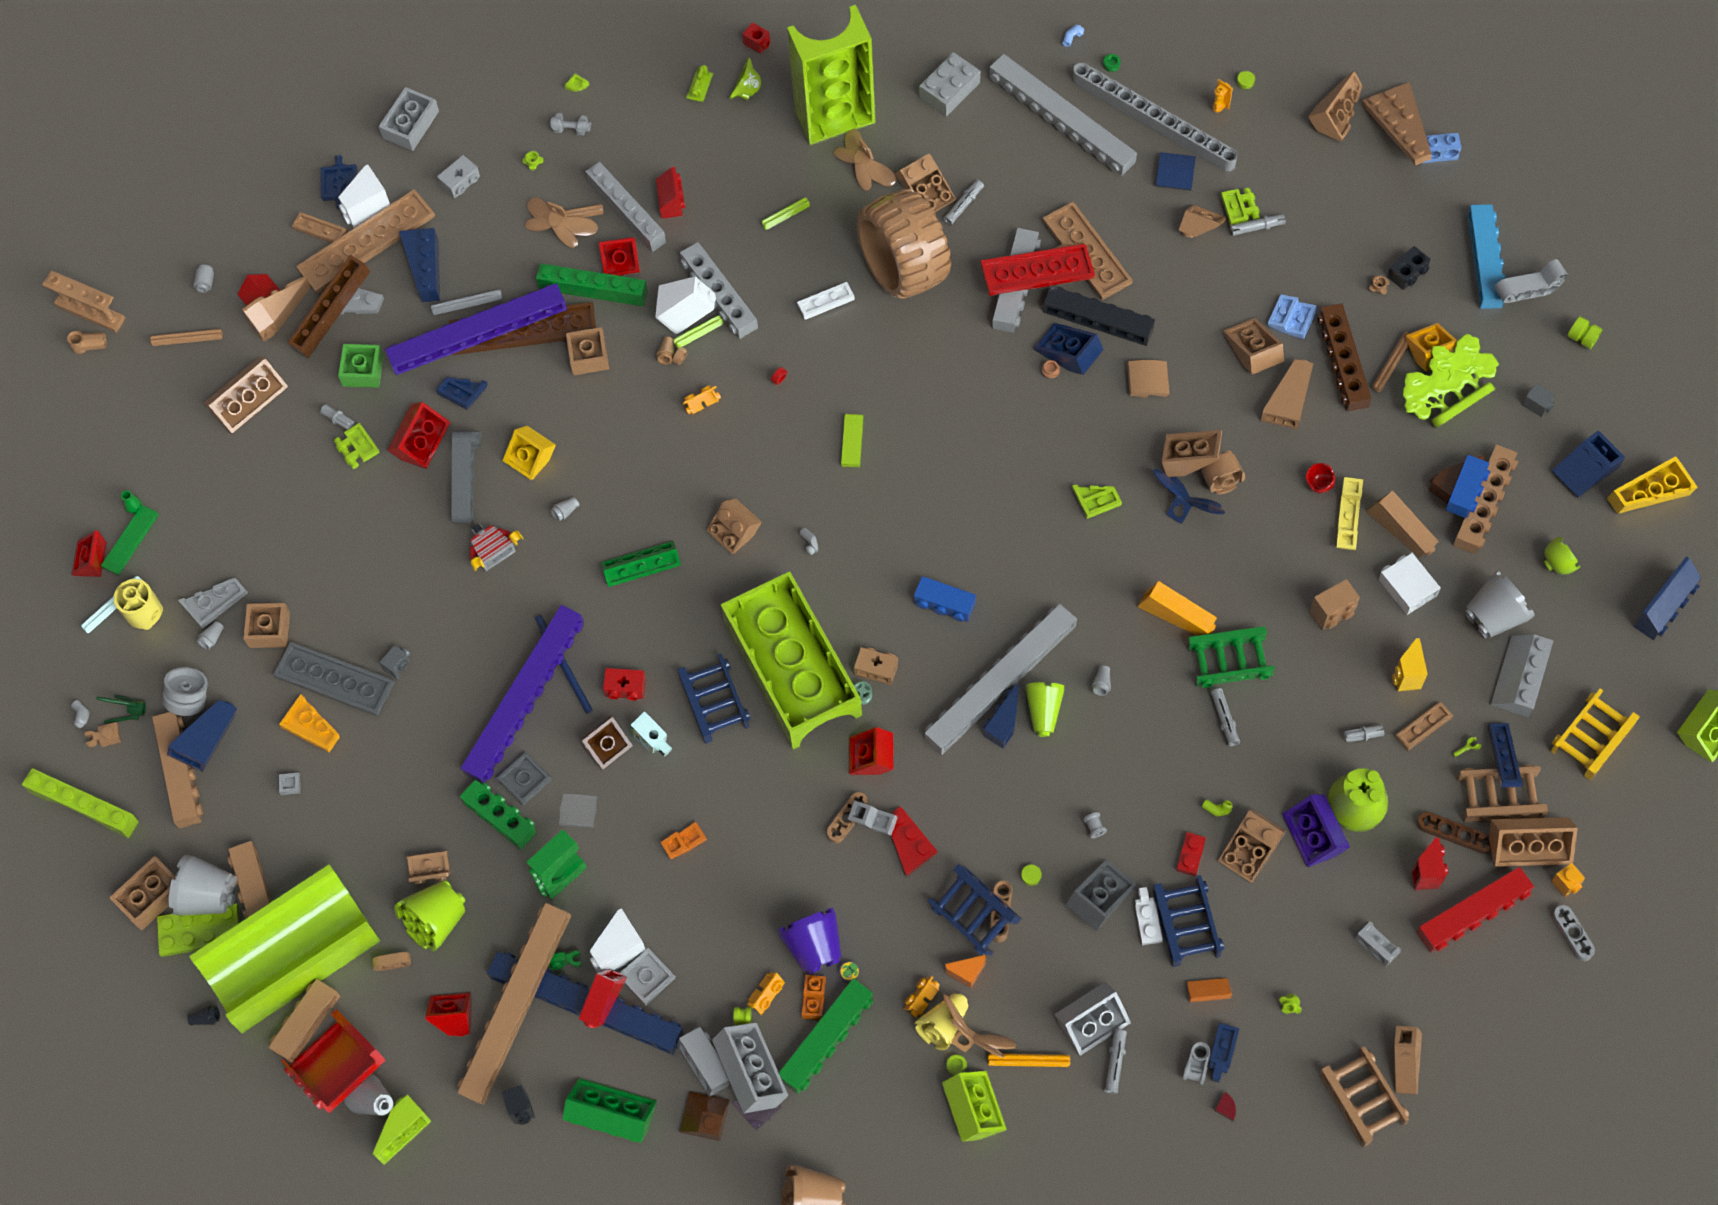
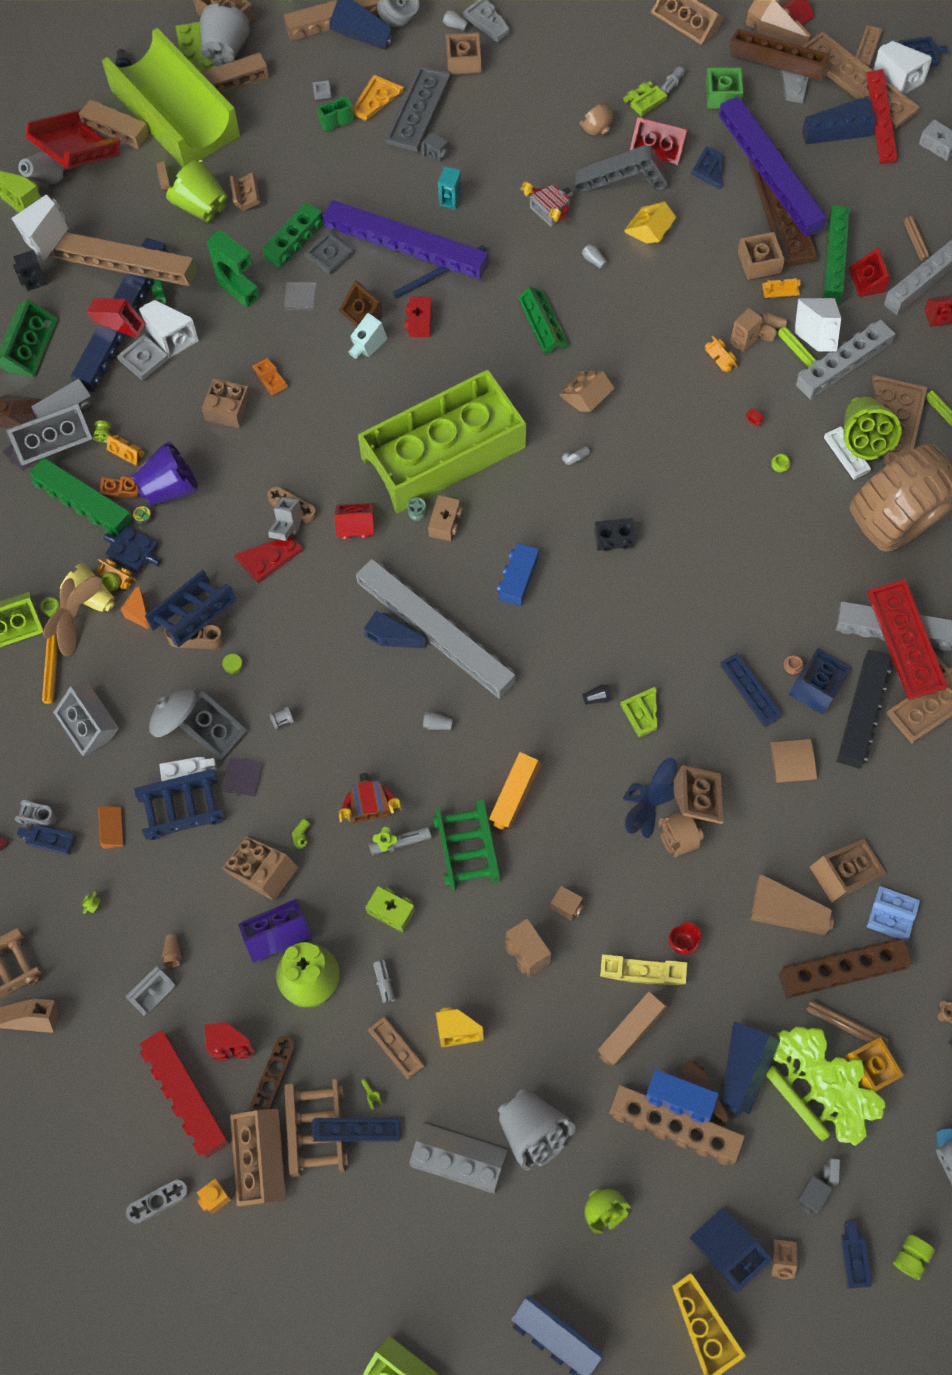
camera: 85 degrees right, 0 degrees up
(333, 765) = (335, 114): none -> green brick
(384, 492) = (598, 120): none -> medium nougat cylinder
(401, 222) = (881, 110): none -> red plate
(451, 1013) = (115, 219): red slope -> none
(460, 644) = (449, 187): none -> teal brick
(465, 302) = (805, 162): light grey axle -> none
(470, 1084) = (41, 226): none -> white slope
(565, 227) = (898, 228): medium nougat piece -> none
(624, 338) = (780, 288): none -> light orange hinge
(680, 371) = (746, 330): none -> medium nougat brick
(701, 712) = (401, 372): dark blue fence -> none
(719, 882) = (225, 403): none -> medium nougat slope
(786, 252) = (907, 403): none -> medium nougat wing
(808, 273) = (870, 428): none -> lime cone
(831, 359) = (780, 463): none -> lime plate
(852, 440) = (690, 486): lime tile -> none
(892, 980) = (132, 549): none -> dark blue plate
(903, 510) = (613, 530): none -> black brick
(931, 999) = (111, 581): none -> lime tile
(1044, 706) = (404, 665): lime cone -> none
(1076, 406) = (750, 690): none -> dark blue plate
(1077, 534) = (599, 694): none -> black cone
(1100, 918) = (171, 711): none -> light grey dish
(1117, 1052) = (53, 742): light grey pin -> none
(1155, 865) = (242, 777): none -> clear purple piece
(1186, 742) = (368, 801): none -> torso
(1191, 854) = (252, 810): red plate -> none
(1228, 730) = (384, 845): none -> lime plate
(1287, 574) = (567, 903): none -> medium nougat brick
(1289, 735) = (396, 918): none -> lime brick
(1338, 925) = (171, 952): none -> medium nougat cone
(1409, 583) = (563, 1033): white brick -> none
(1433, 437) = (747, 1066): none -> dark blue slope
(1519, 384) = (831, 1172): none -> light grey plate
(1586, 376) = (855, 1257): none -> dark blue hinge
(1589, 425) = (784, 1259): none -> medium nougat bracket
(1602, 750) = (366, 1247): yellow fence -> none

